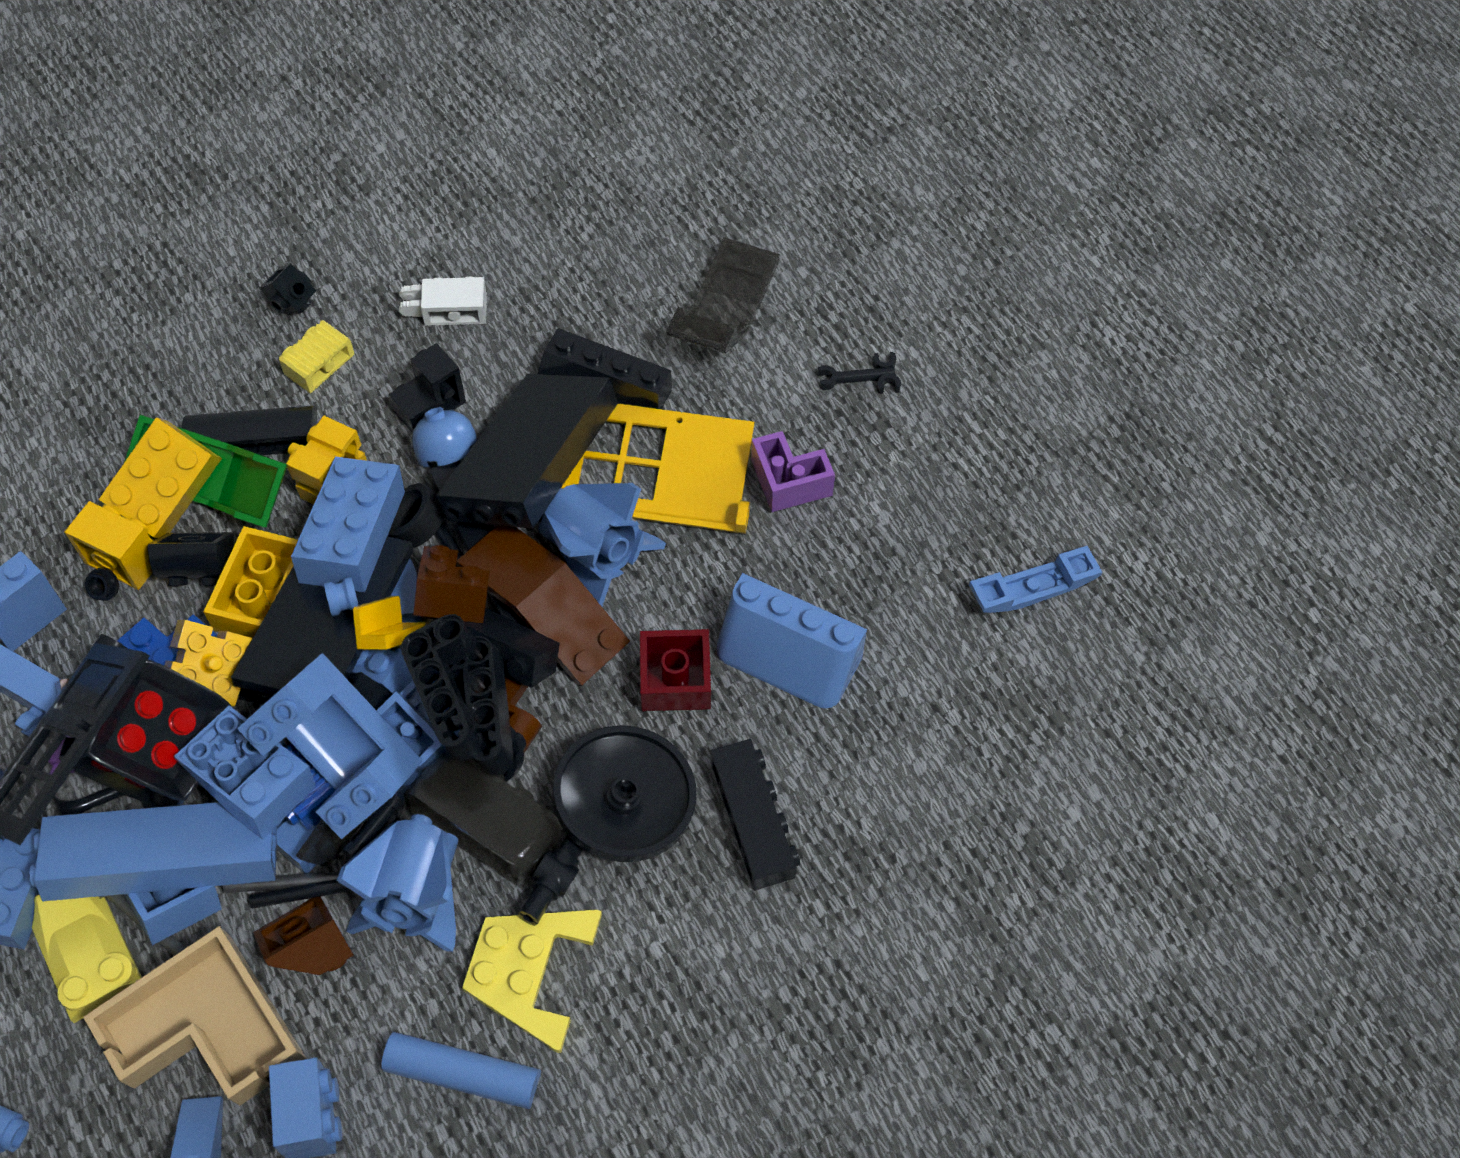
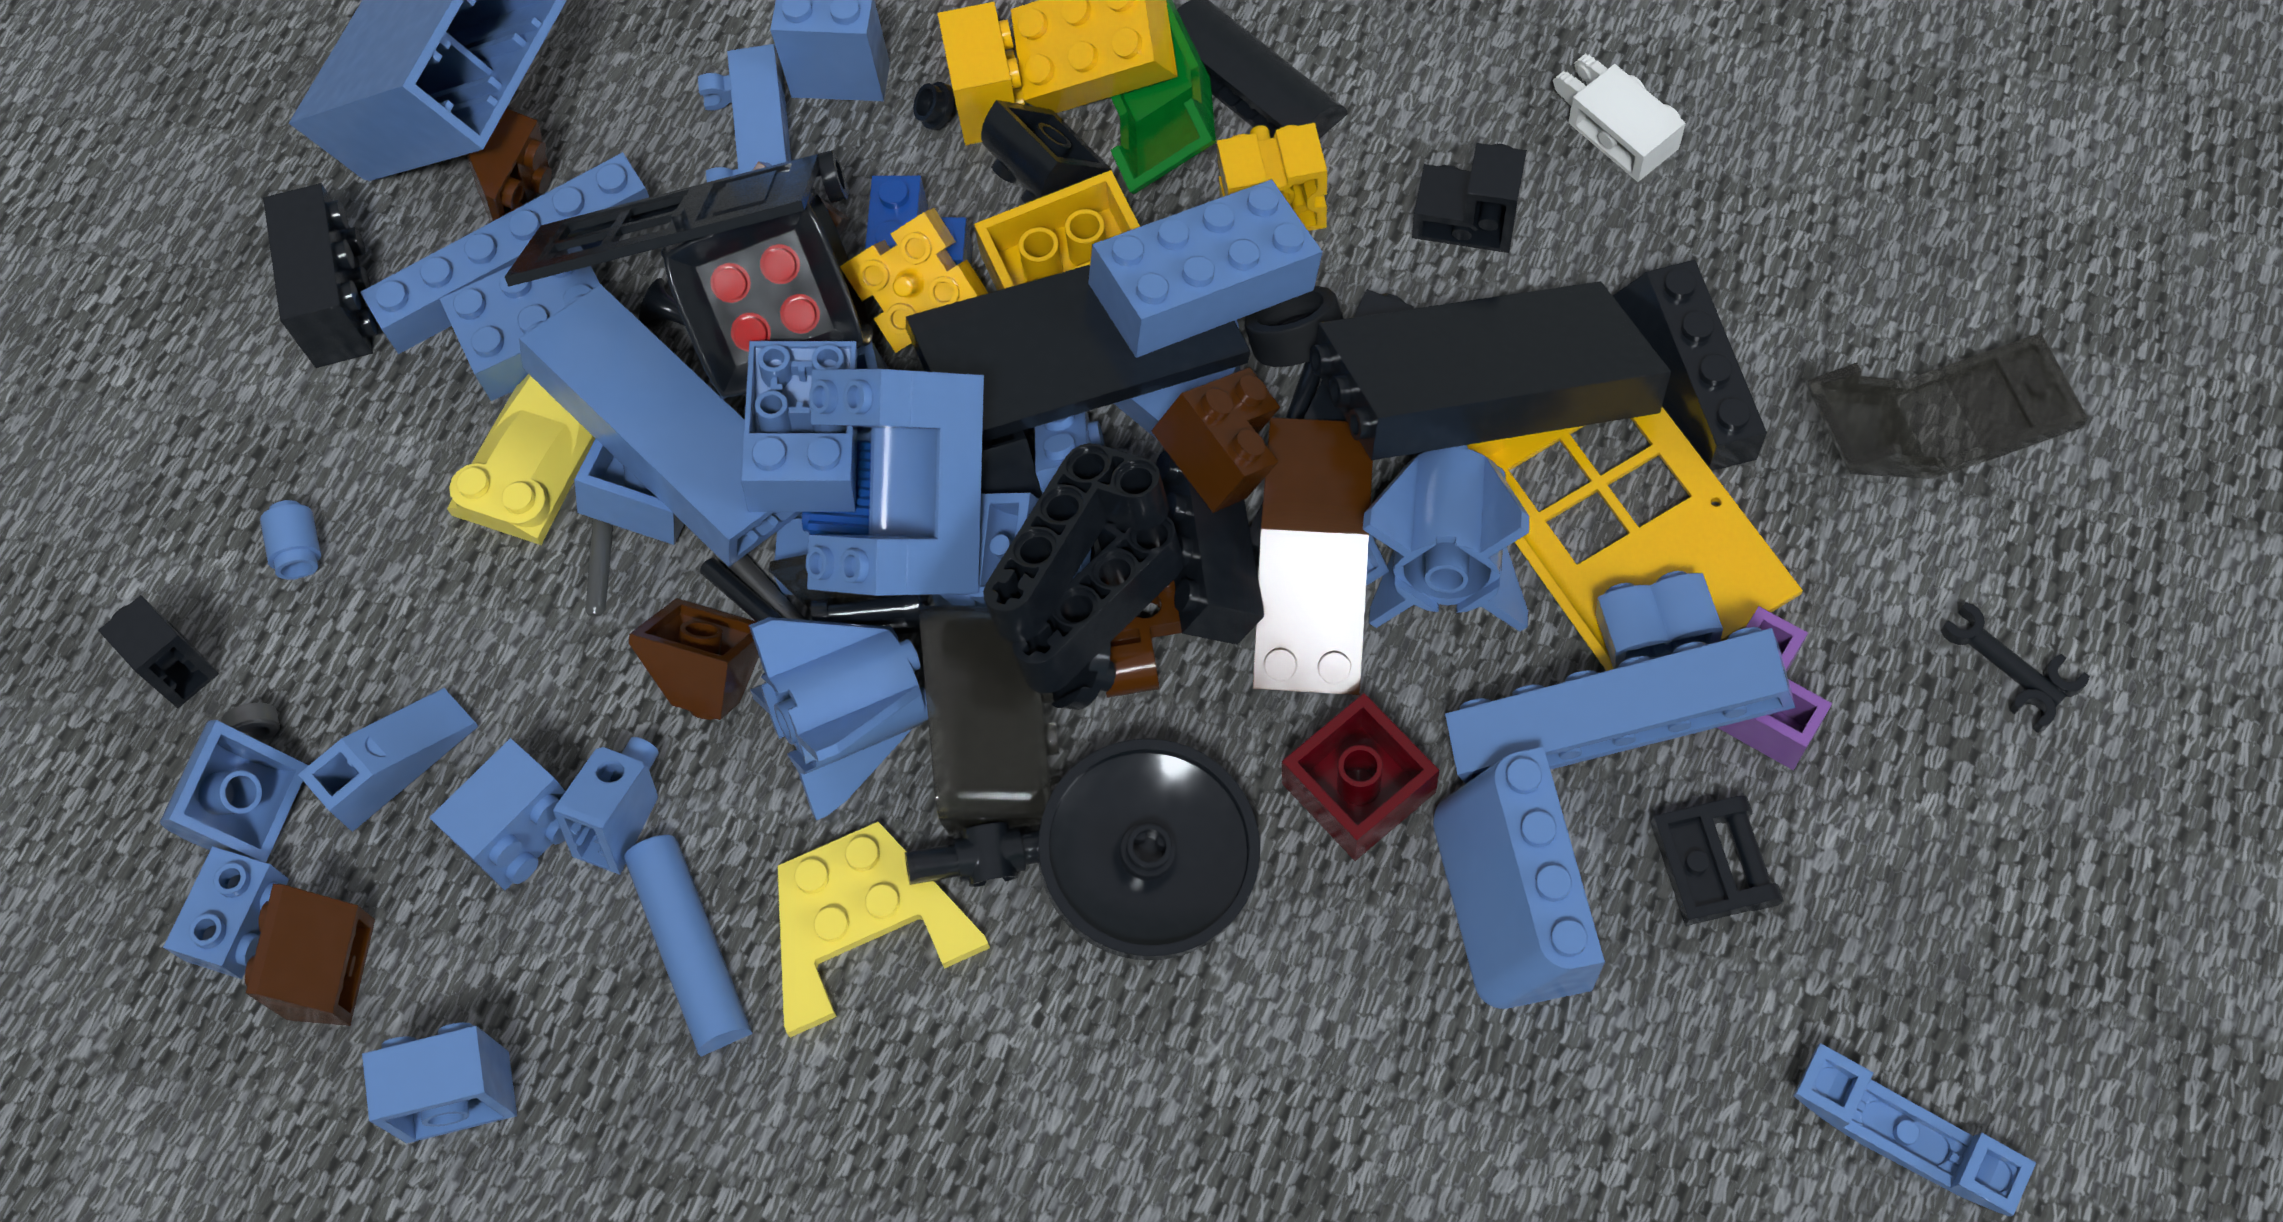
camera: 60 degrees right, 5 degrees up
(198, 1000) = (552, 626): tan piece -> none
(316, 356) = (1408, 52): light yellow brick -> none
(341, 596) = (1099, 337): medium blue wheel -> none
(347, 1050) = (608, 804): none -> medium blue torso
(381, 625) = (1111, 410): yellow panel -> none
(442, 437) = (1422, 266): medium blue cylinder -> none
(716, 486) = (1657, 616): none -> medium blue brick
(749, 530) = (1626, 706): none -> medium blue brick
(753, 814) = (1253, 1022): black brick -> none
(843, 565) = (1700, 866): none -> black plate

